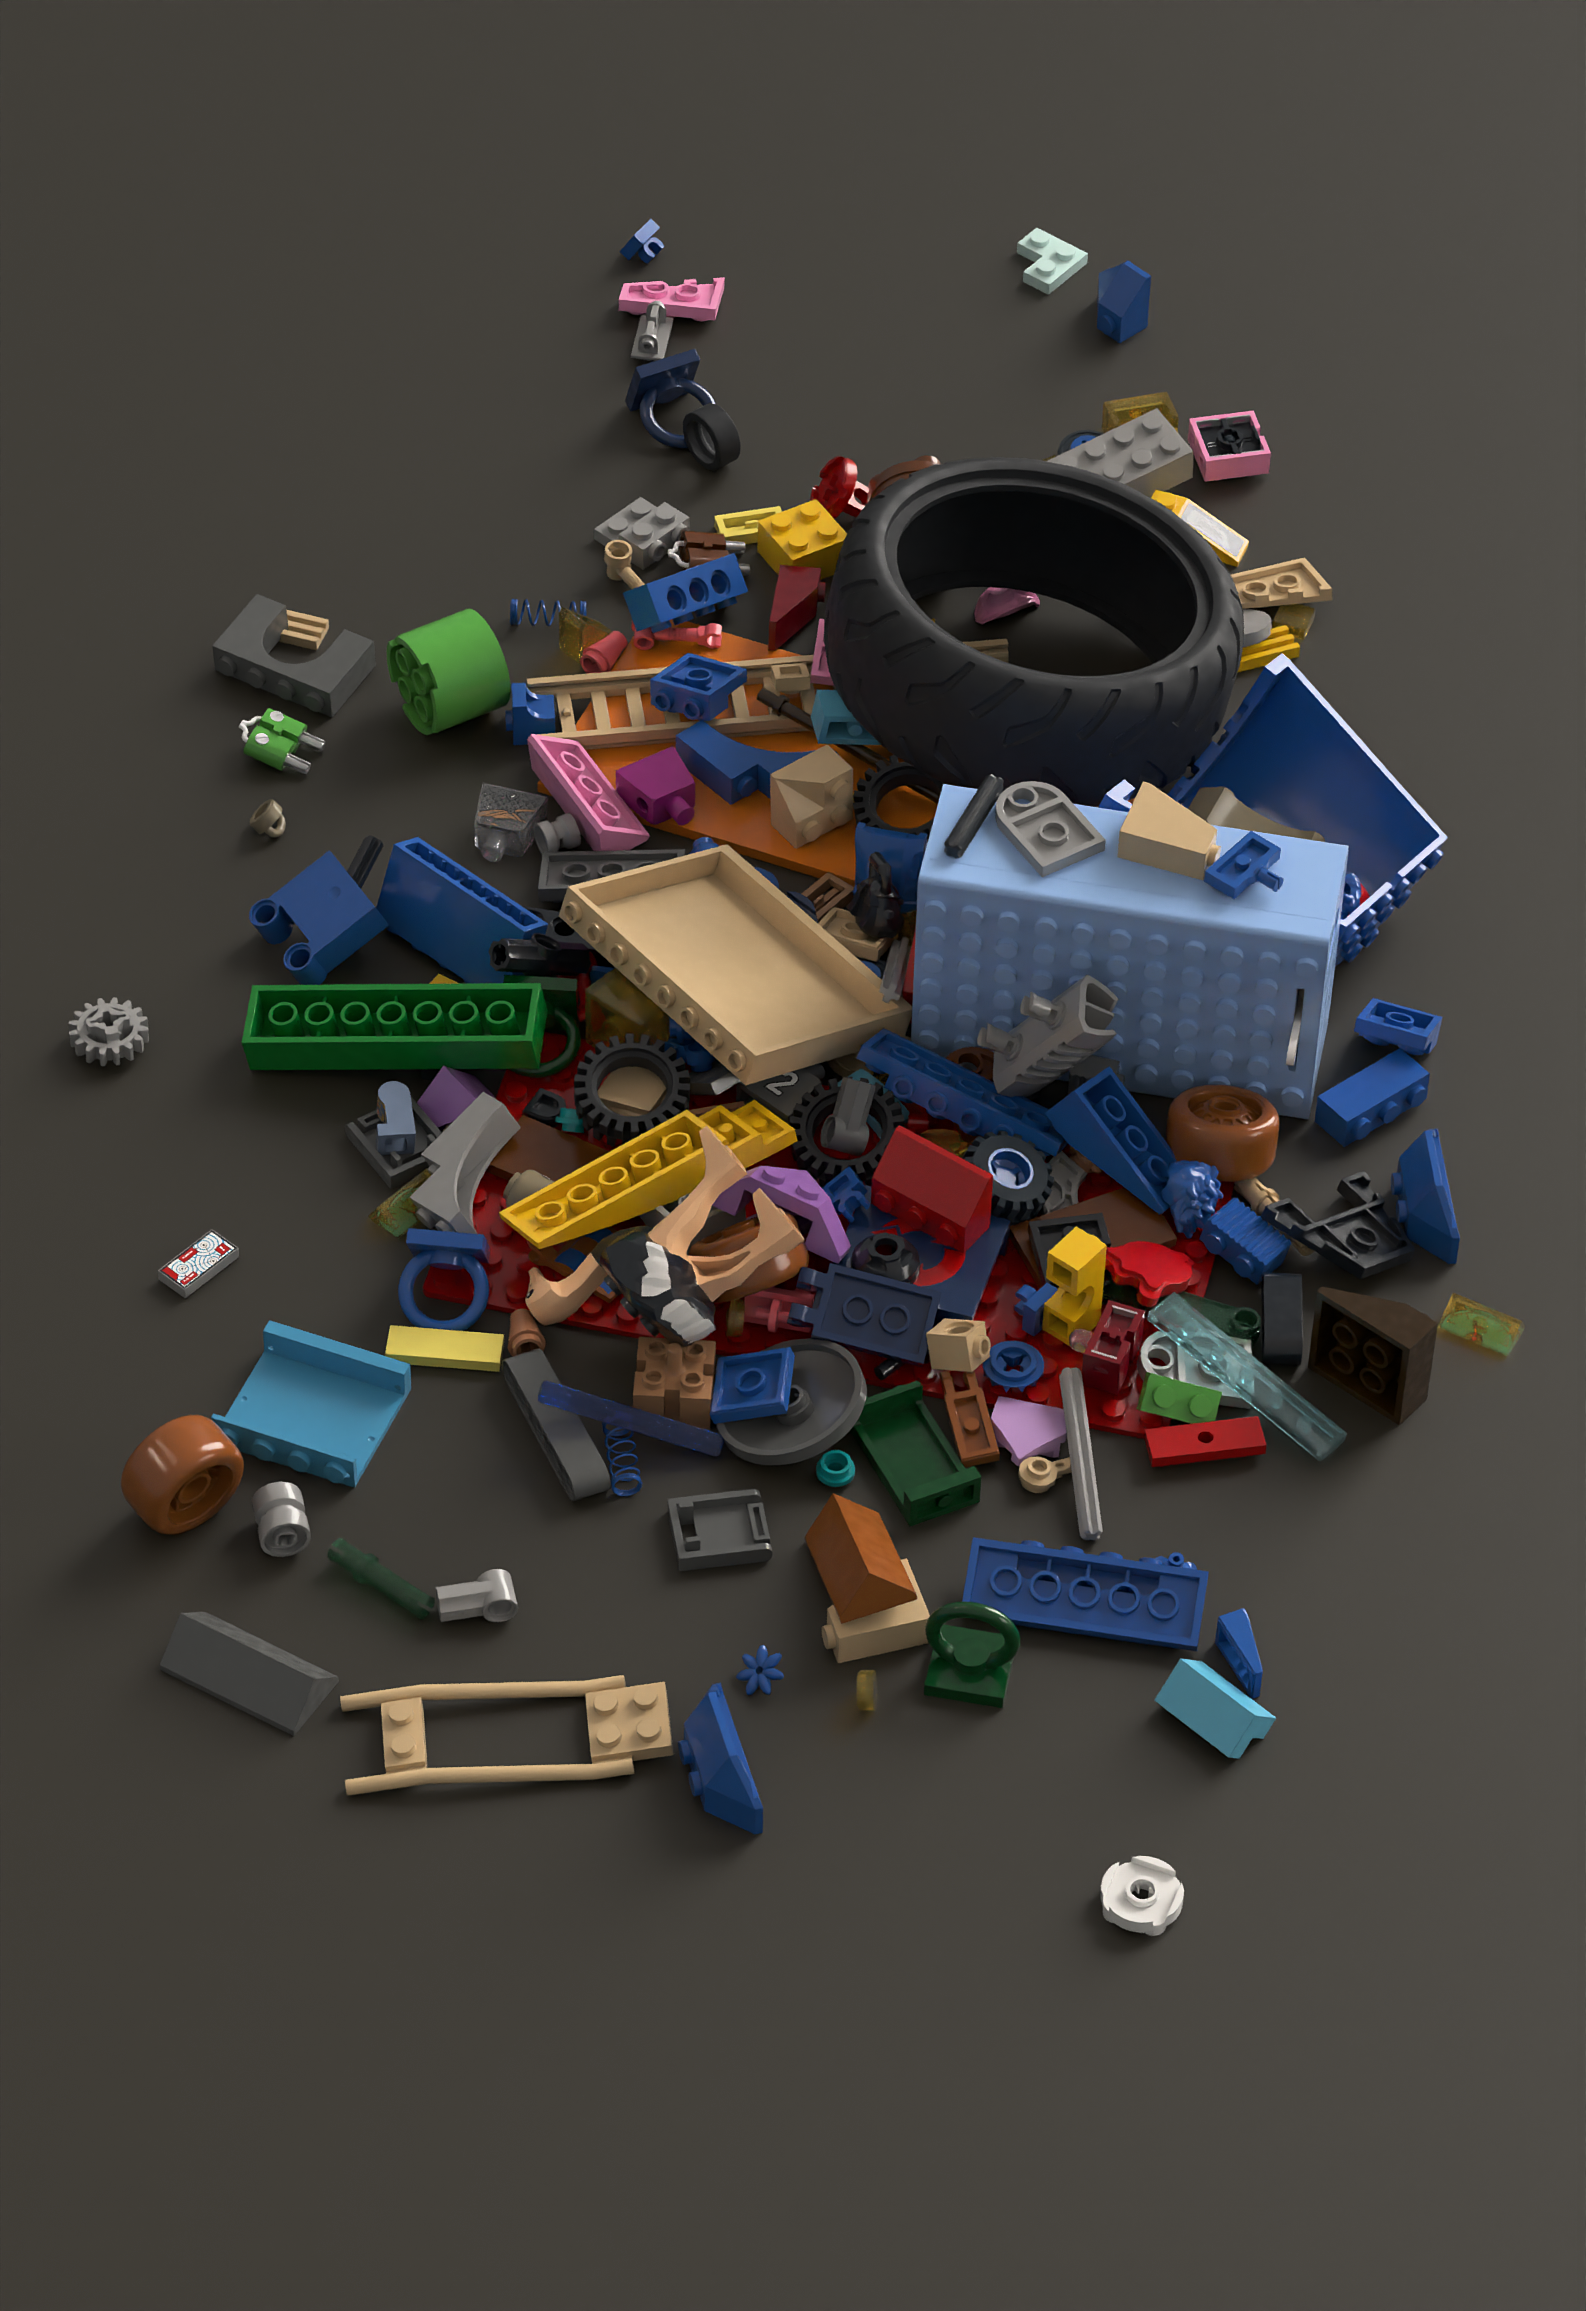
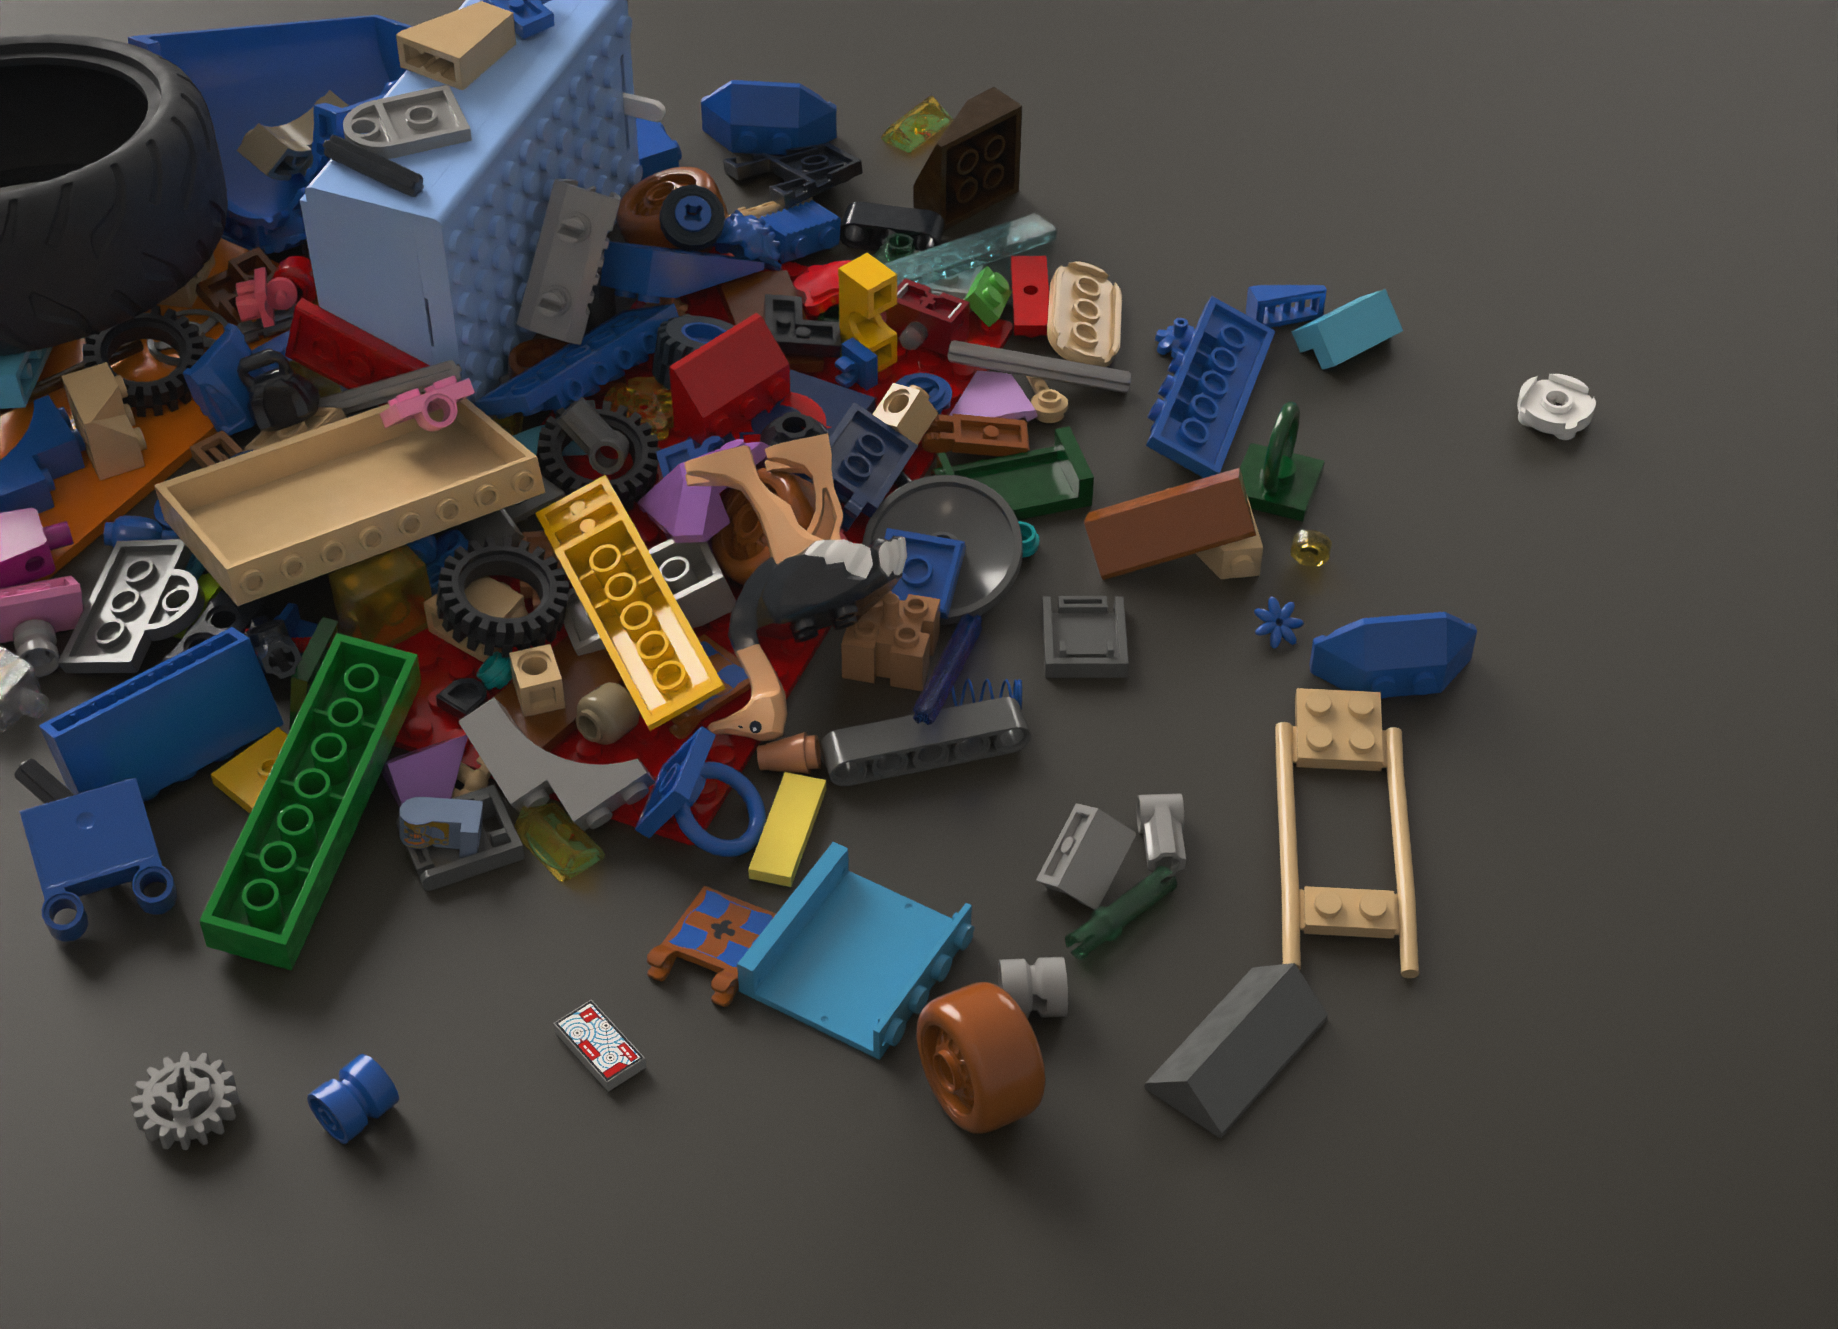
camera: 80 degrees left, 0 degrees up
(118, 1122) = (360, 1092): none -> blue wheel
(317, 1311) = (713, 935): none -> dark orange flag
(425, 1541) = (1086, 855): none -> light grey panel
(555, 1140) = (537, 680): none -> tan brick
(841, 984) = (441, 395): none -> bright pink plate
(1175, 1142) = (687, 230): none -> black wheel
(1182, 1487) = (1084, 314): none -> tan tile

